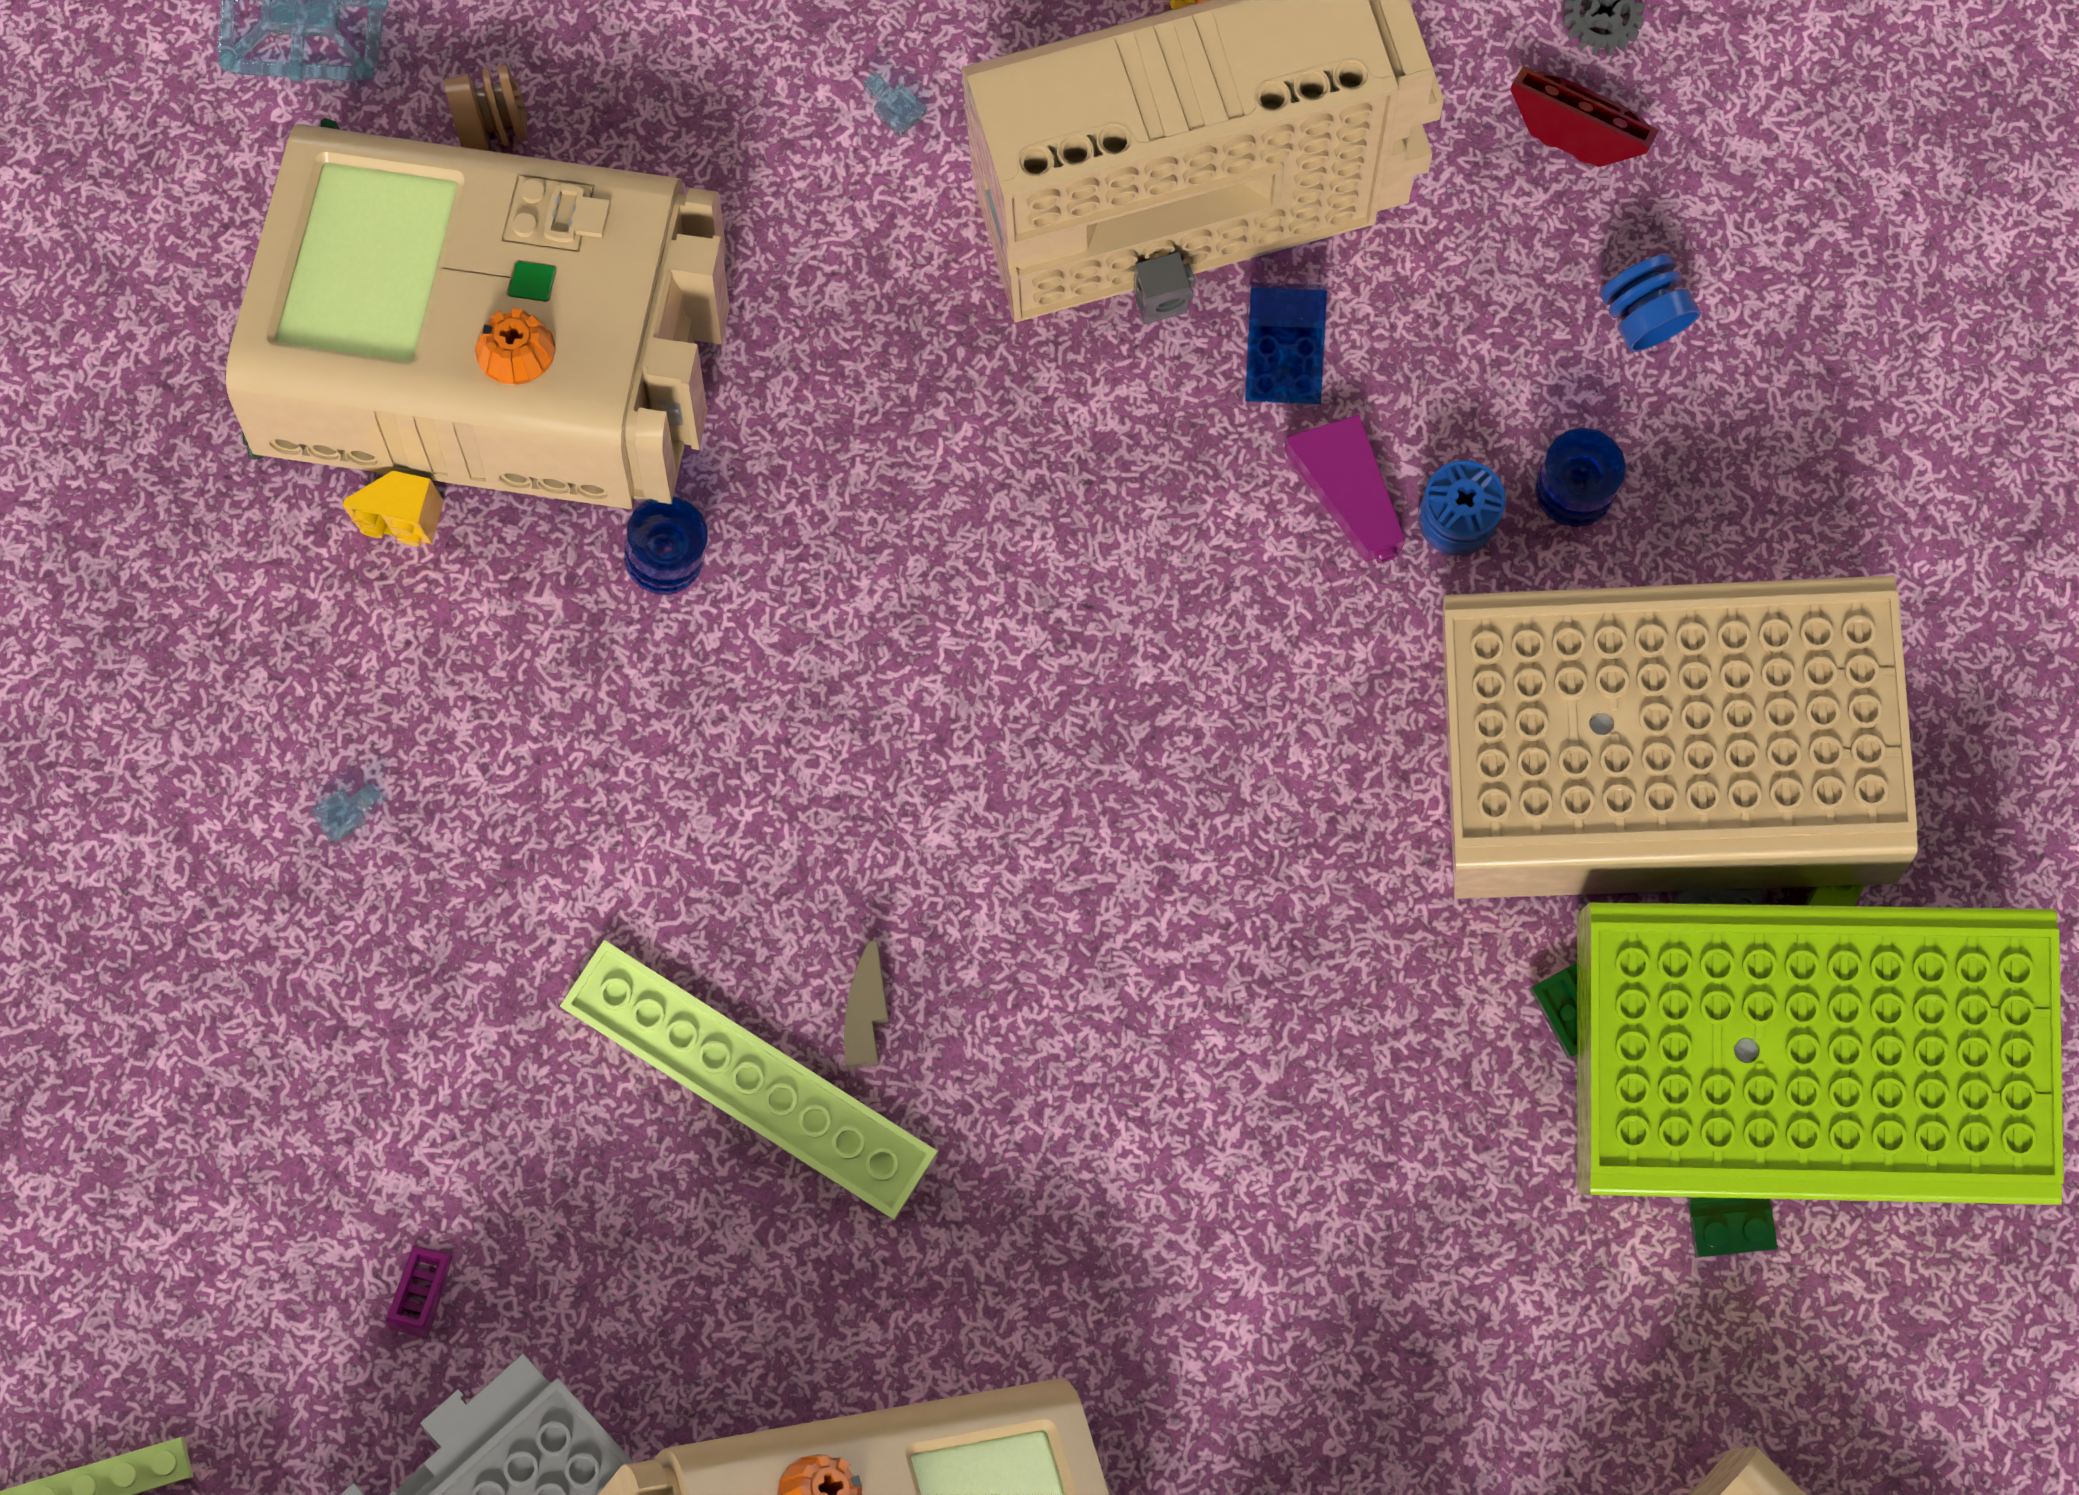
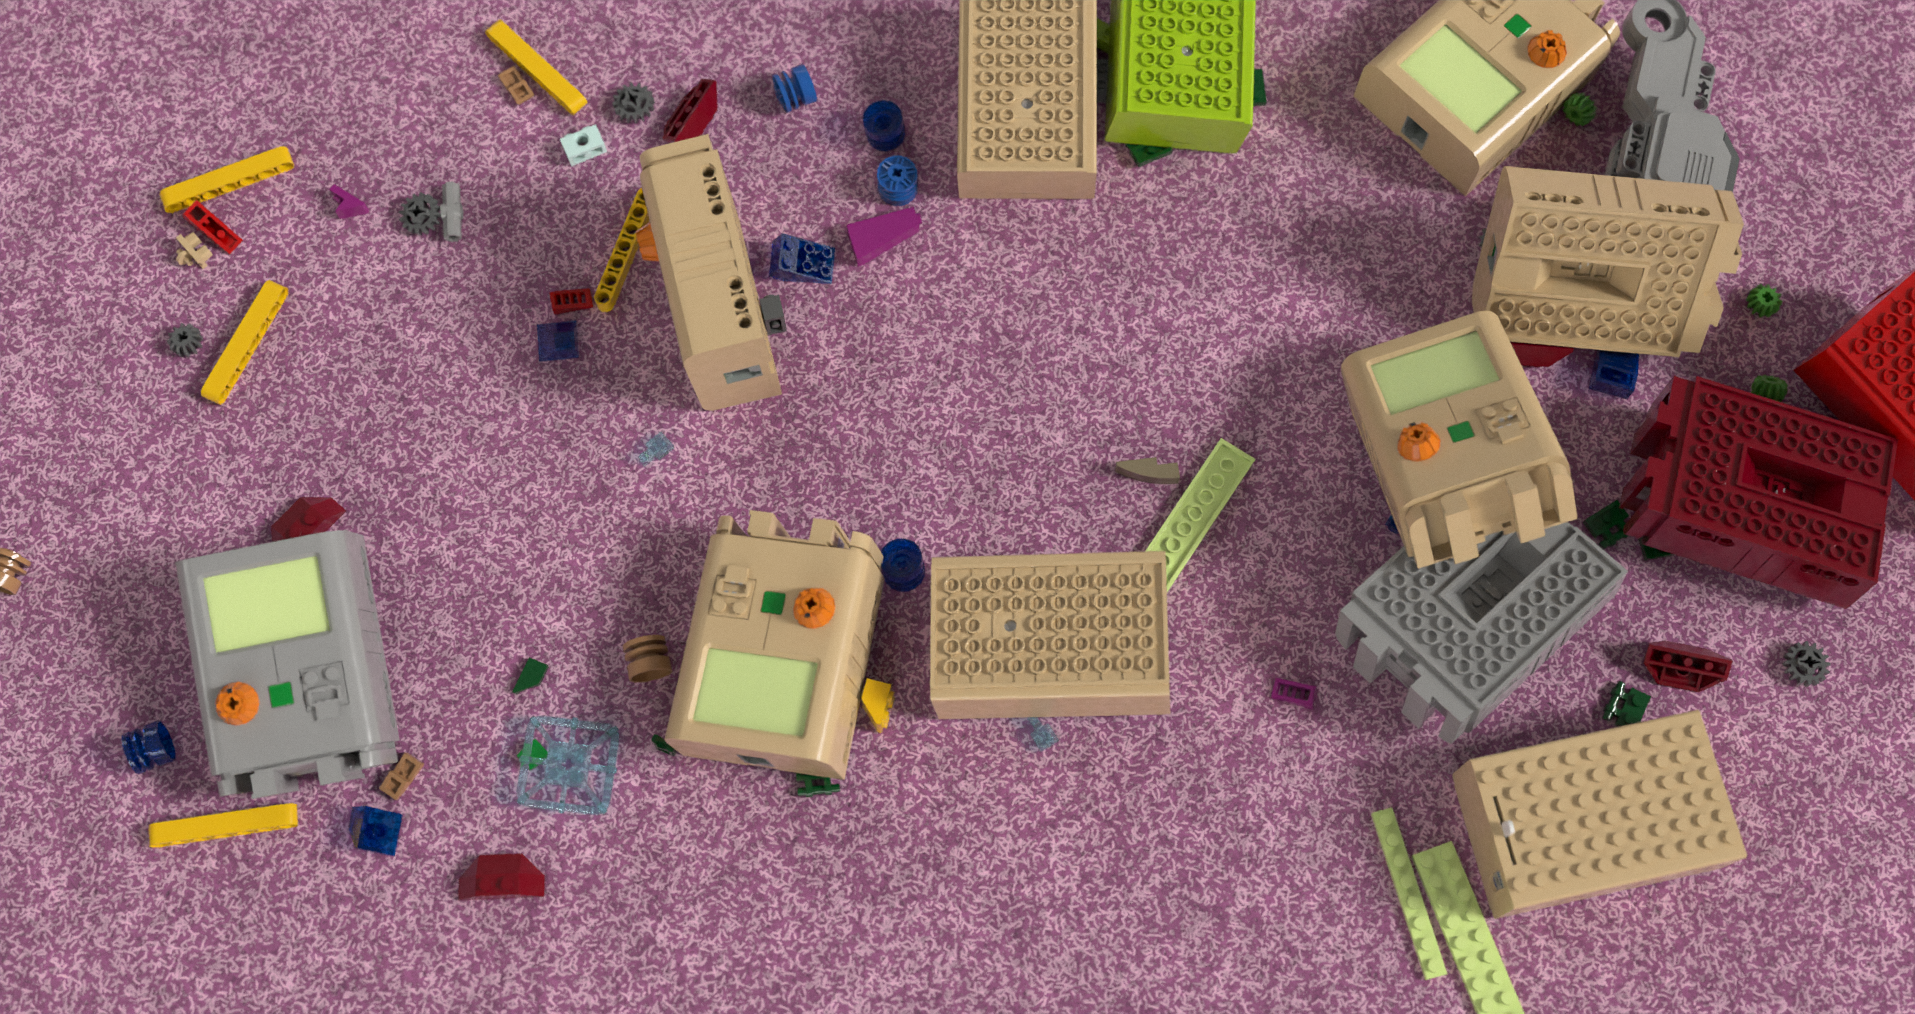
camera: 90 degrees left, 5 degrees down
(495, 805) = (1049, 635): none -> tan piece

